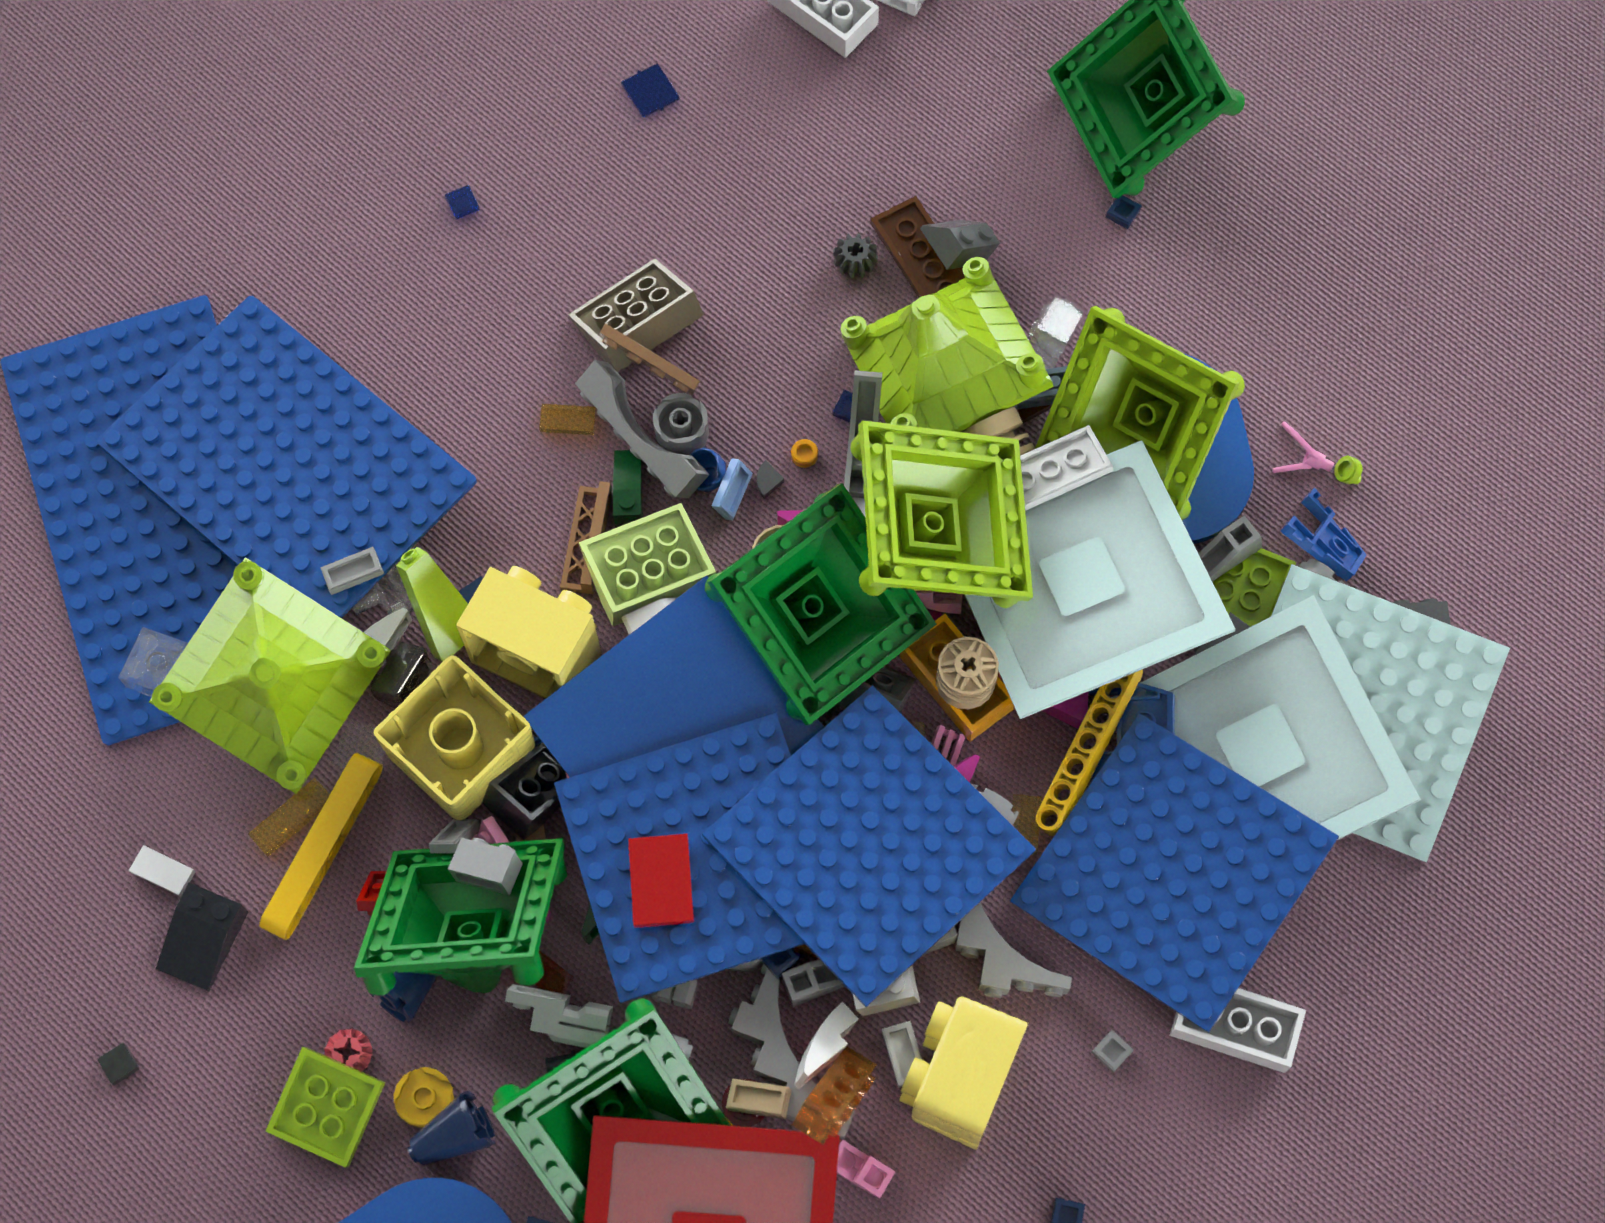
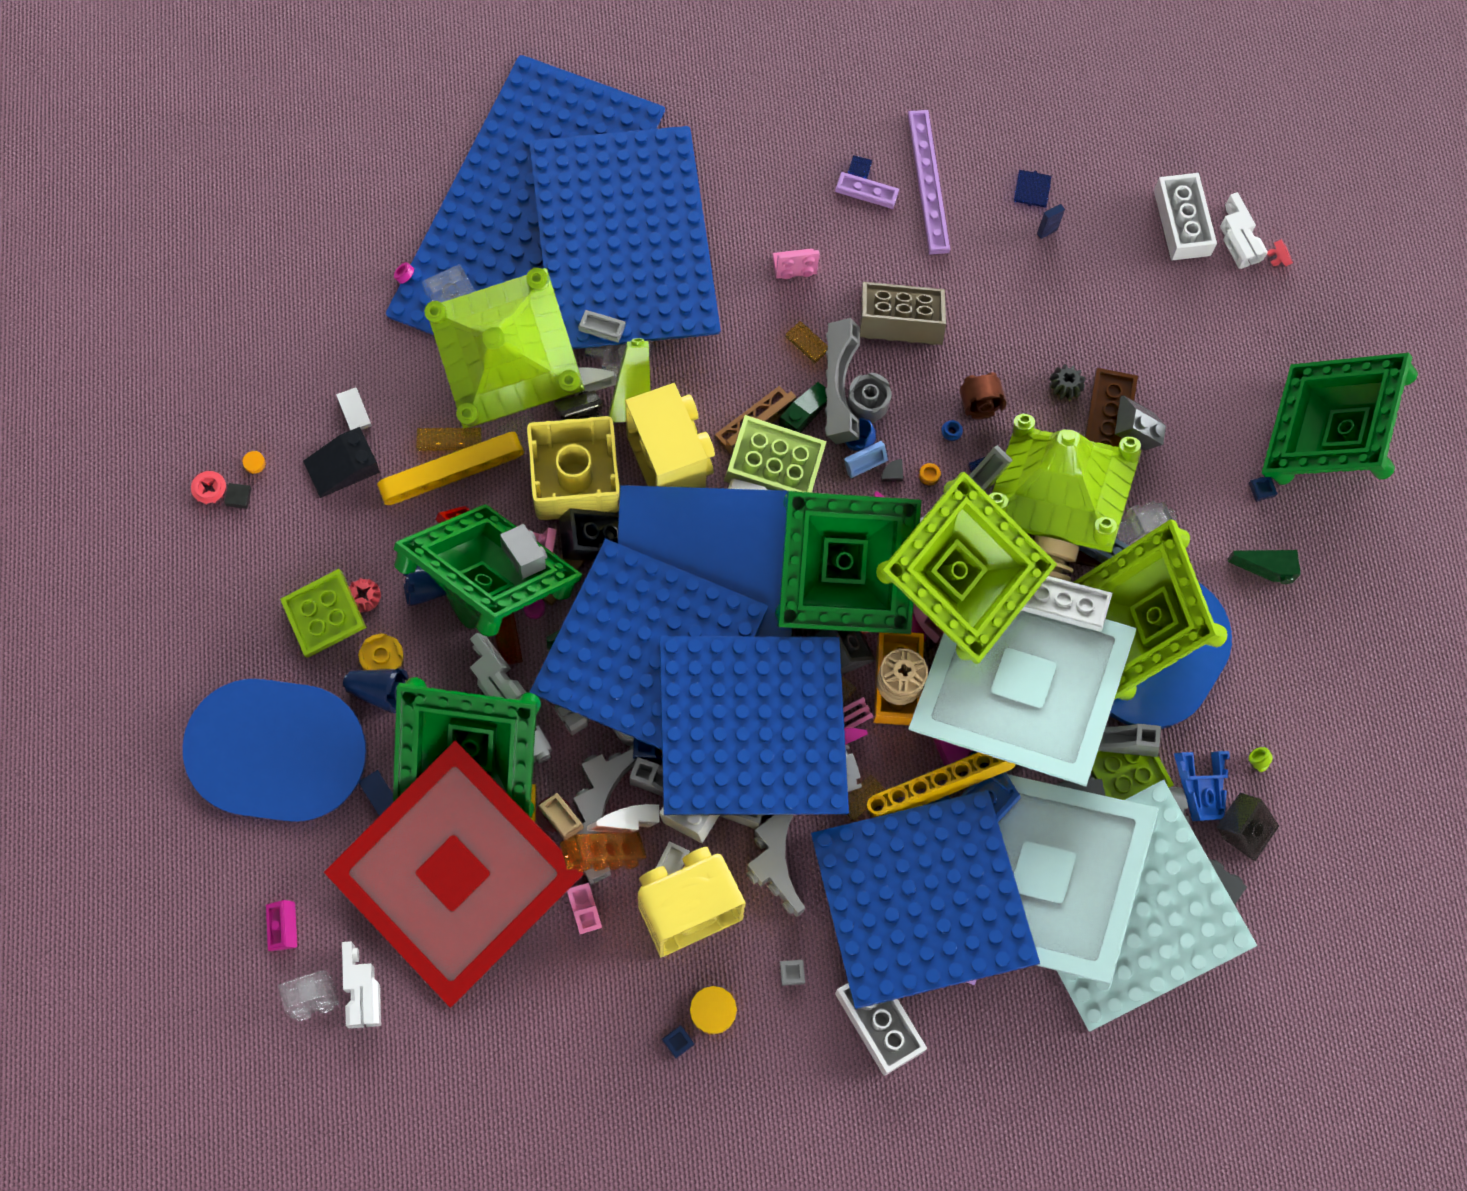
camera: 35 degrees right, 0 degrees up
(69, 1073) = (208, 478): none -> coral gear
(85, 684) = (404, 272): none -> dark pink tile
(103, 1014) = (254, 462): none -> light orange tile
(450, 836) = (530, 521): light grey tile -> none
(485, 348) = (796, 263): none -> bright pink bracket
(489, 219) = (867, 190): none -> lavender tile
(543, 163) = (928, 182): none -> lavender tile
(657, 365) = (883, 351): medium nougat wing -> none
(660, 880) = (613, 643): red tile -> none
(700, 108) = (1050, 221): none -> dark blue tile
(787, 385) = (954, 425): none -> blue plate
(789, 334) = (982, 395): none -> copper brick
(1072, 1155) = (713, 1010): none -> yellow tile
(1195, 279) = (1270, 564): none -> dark green slope
(1312, 457) = (1244, 733): bright pink plant -> none
(1393, 543) = (1248, 825): none -> clear smoke slope

